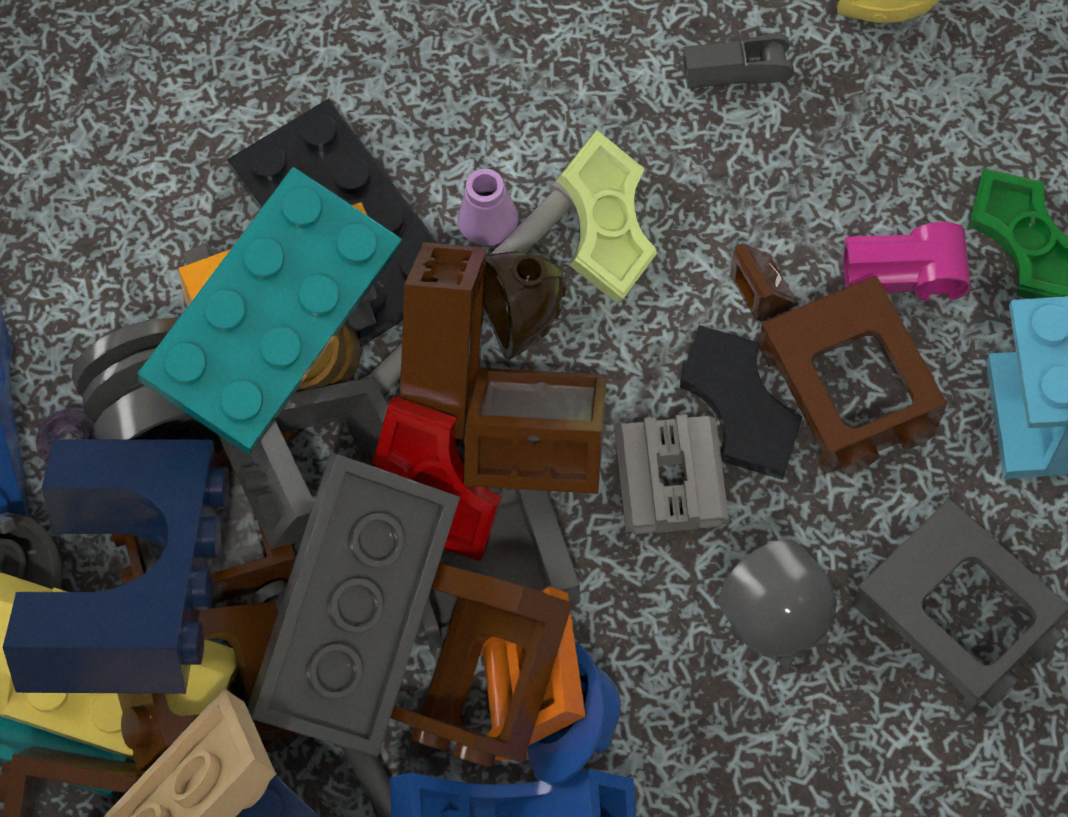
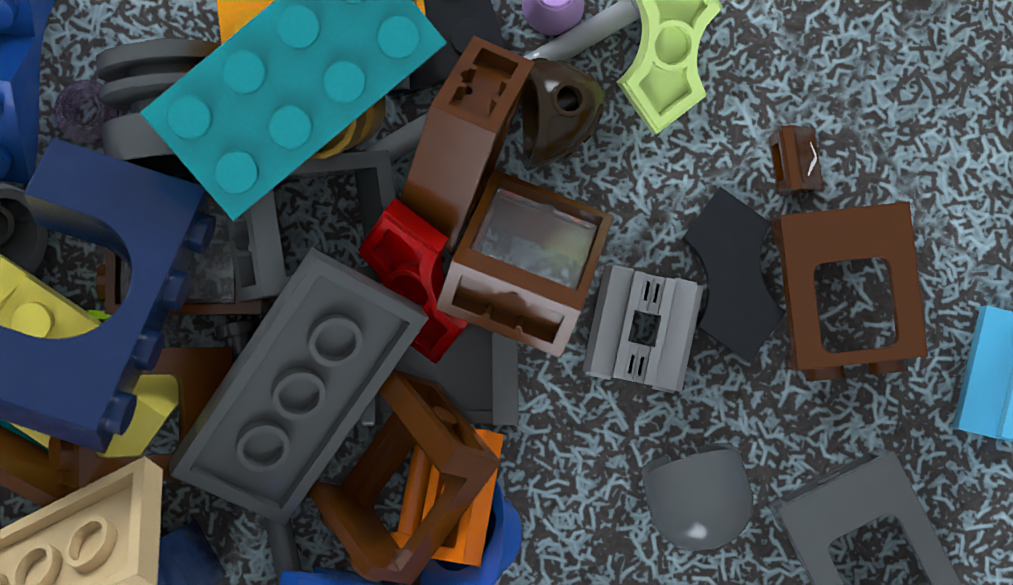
camera: 15 degrees right, 20 degrees up
(924, 262) = (956, 190): dark pink piece -> none

